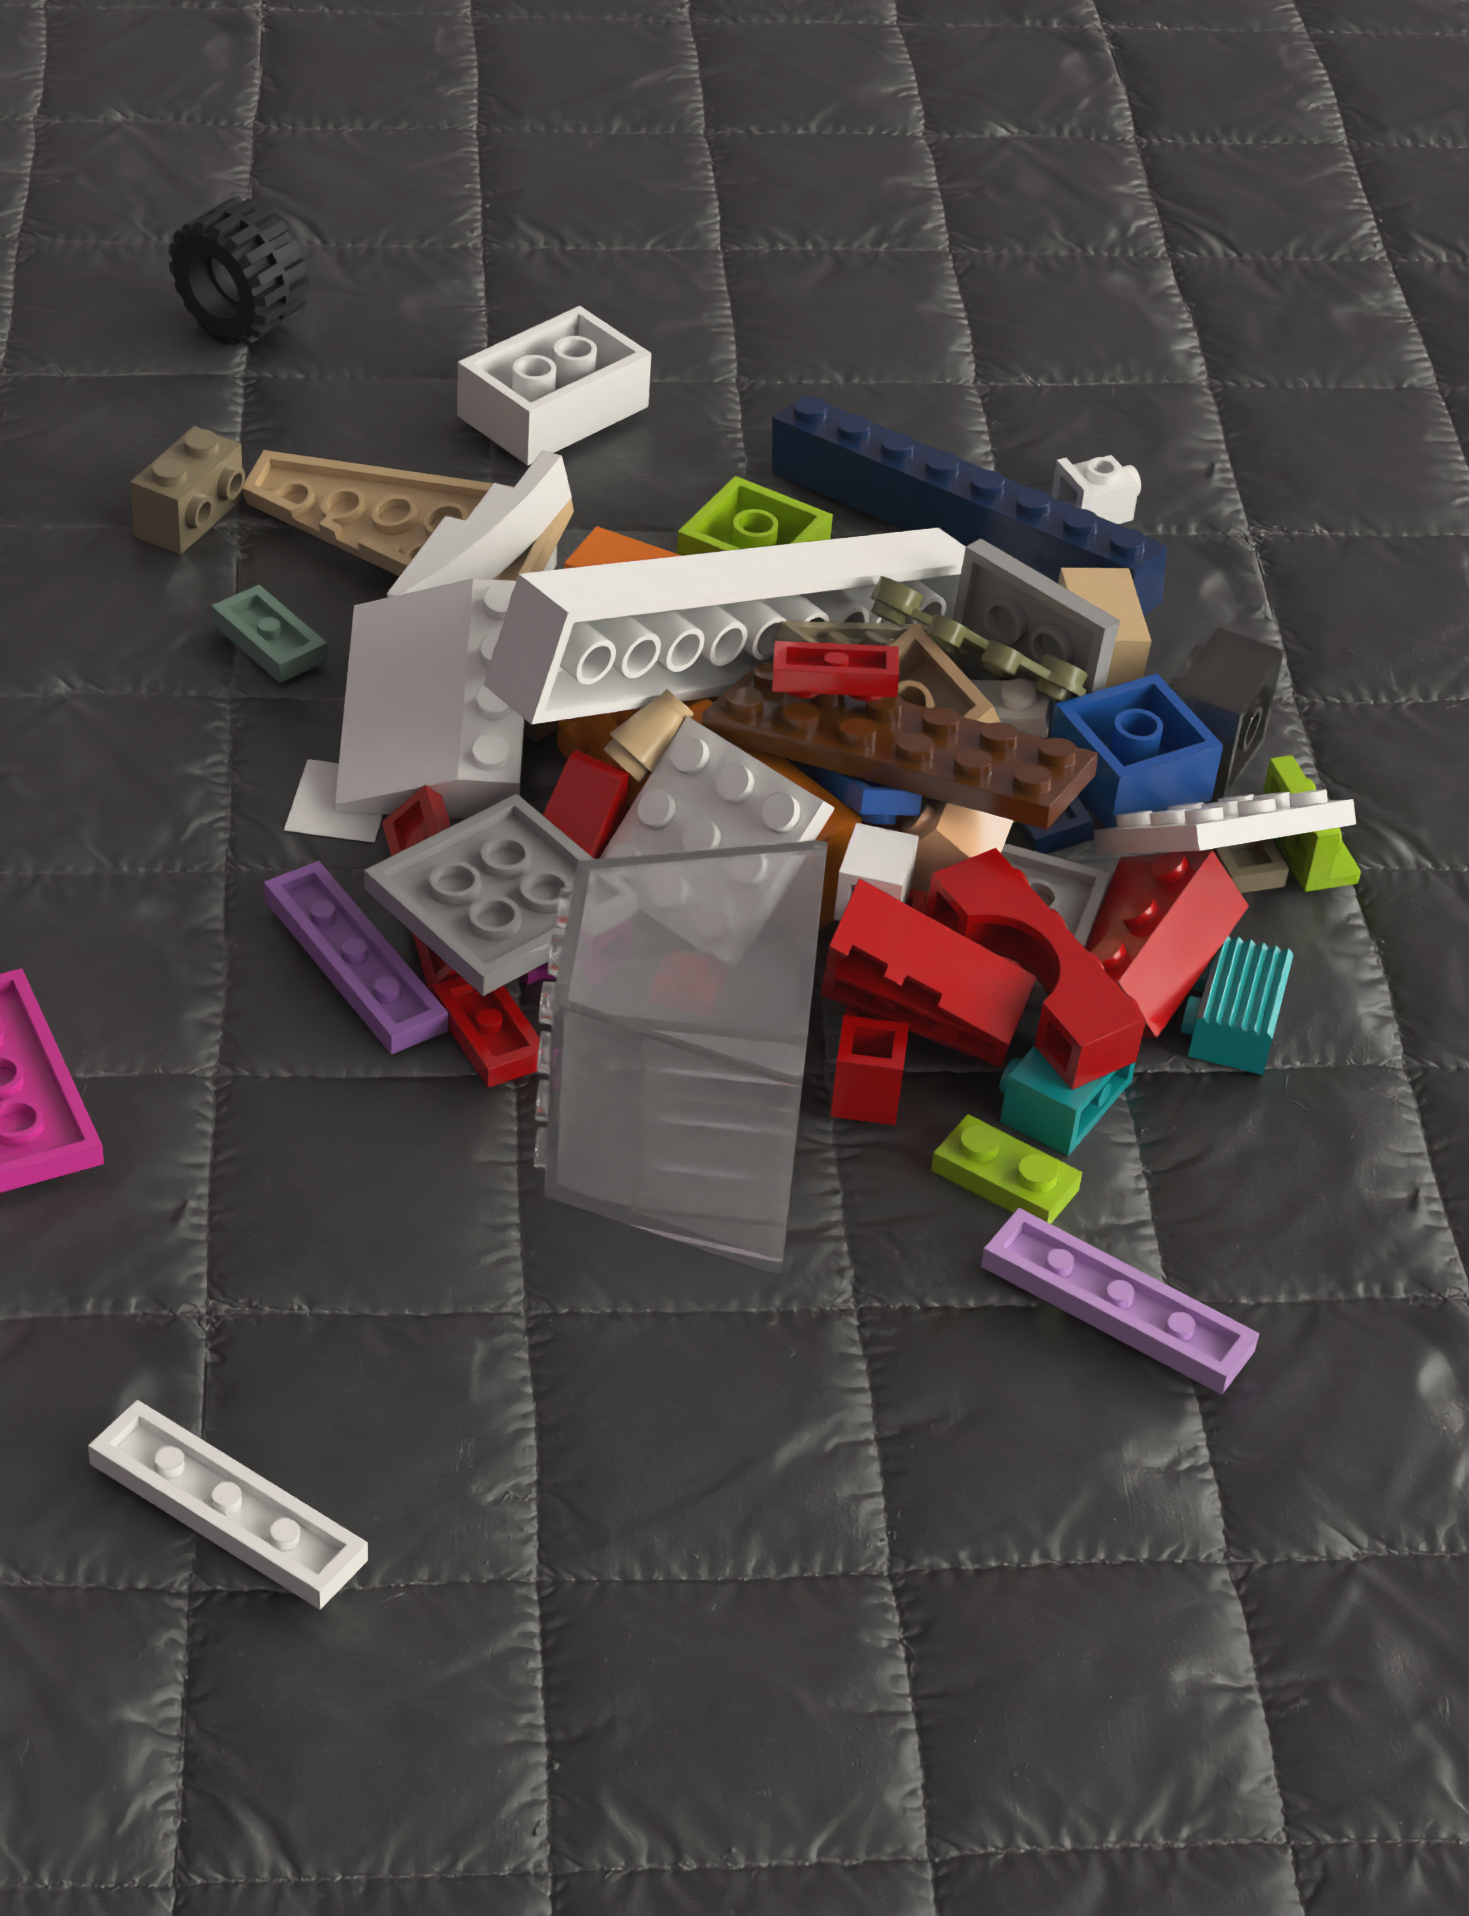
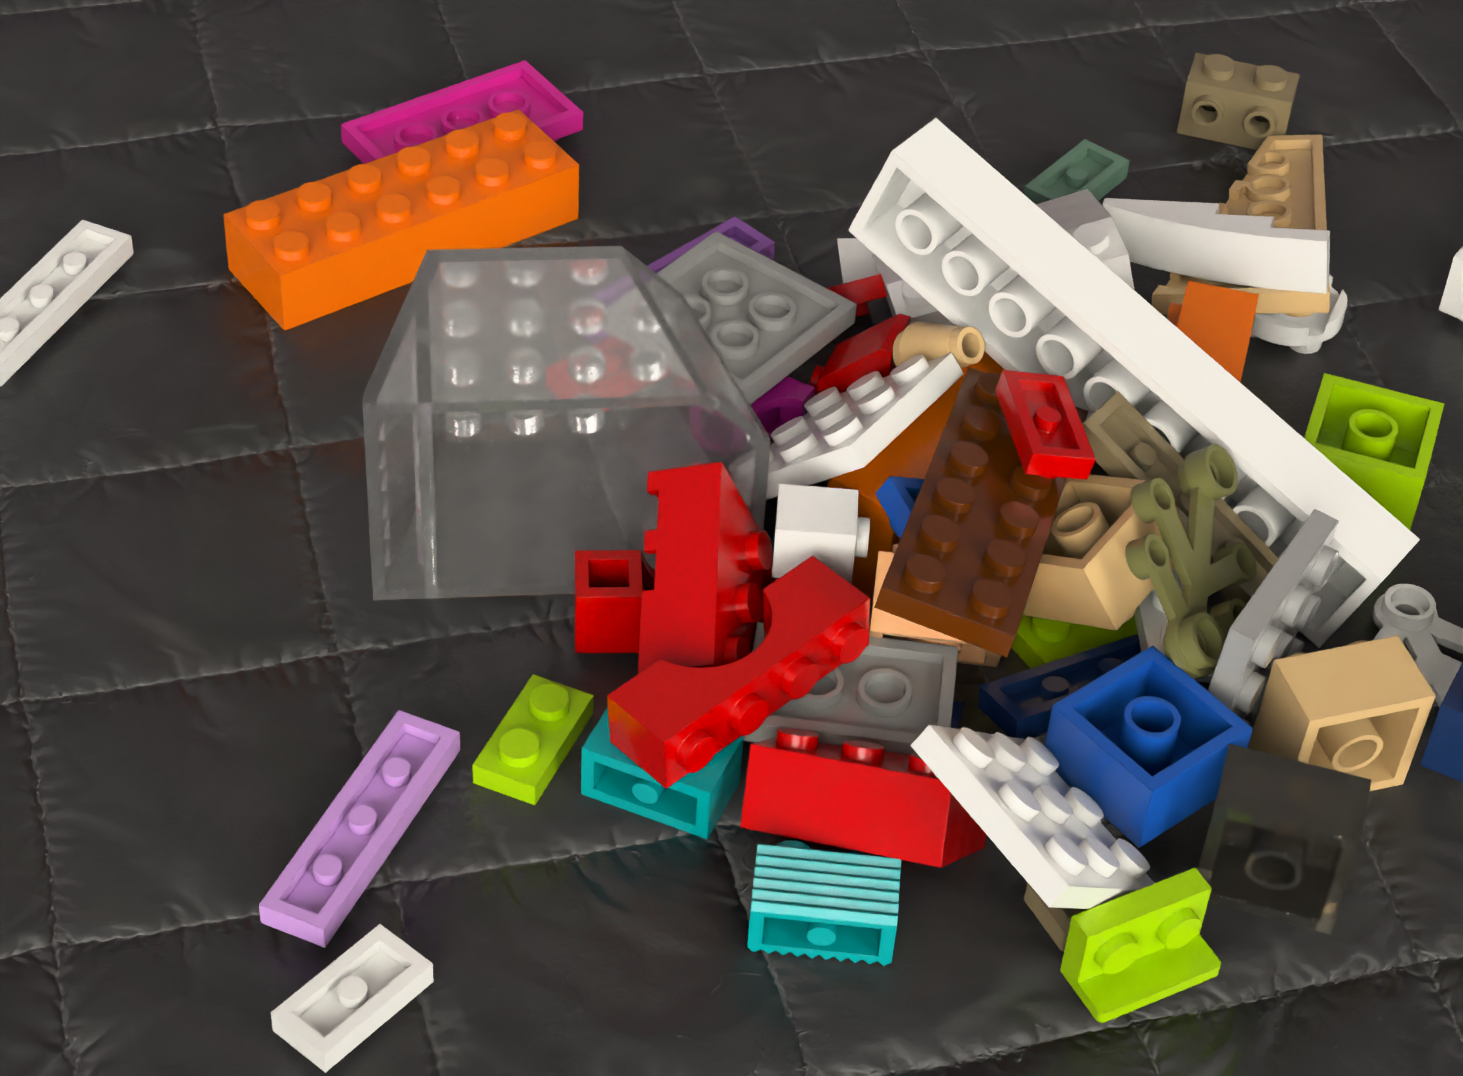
camera: 80 degrees right, 0 degrees up
(183, 1154) = (374, 223): none -> orange brick
(1326, 1330) = (352, 997): none -> white plate

